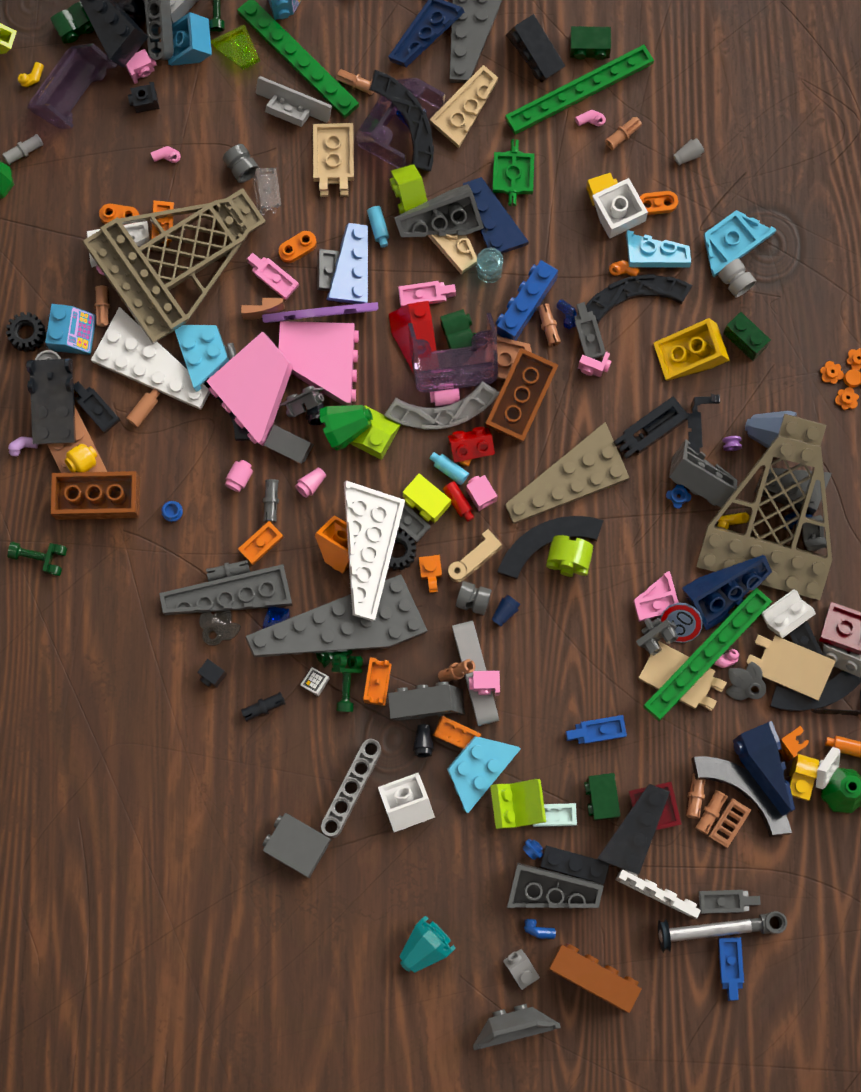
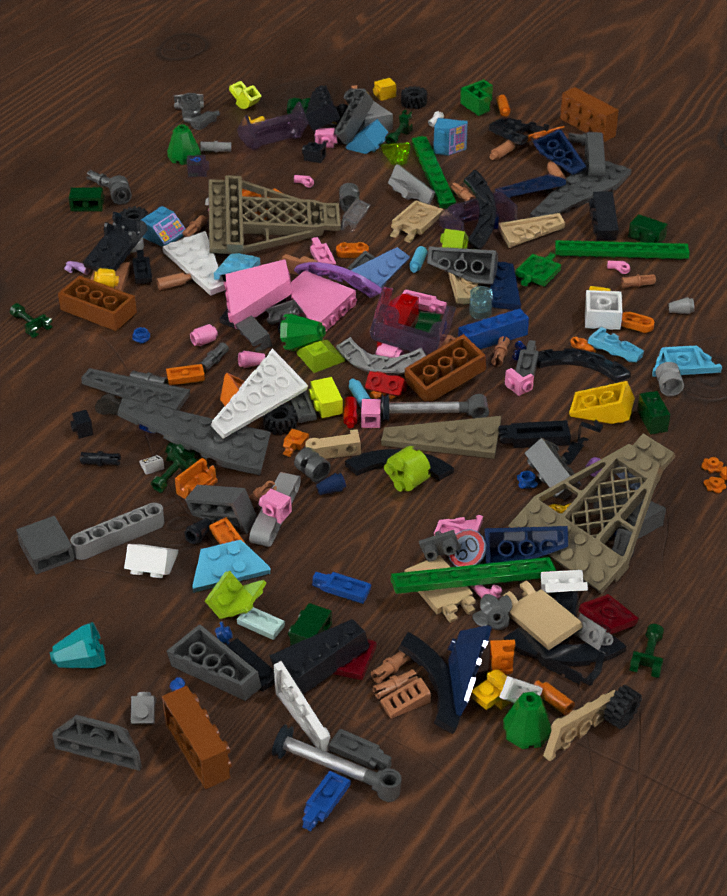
camera: 30 degrees right, 35 degrees down
(29, 198) = (197, 166): none -> brick
(574, 425) = (475, 406): none -> piece

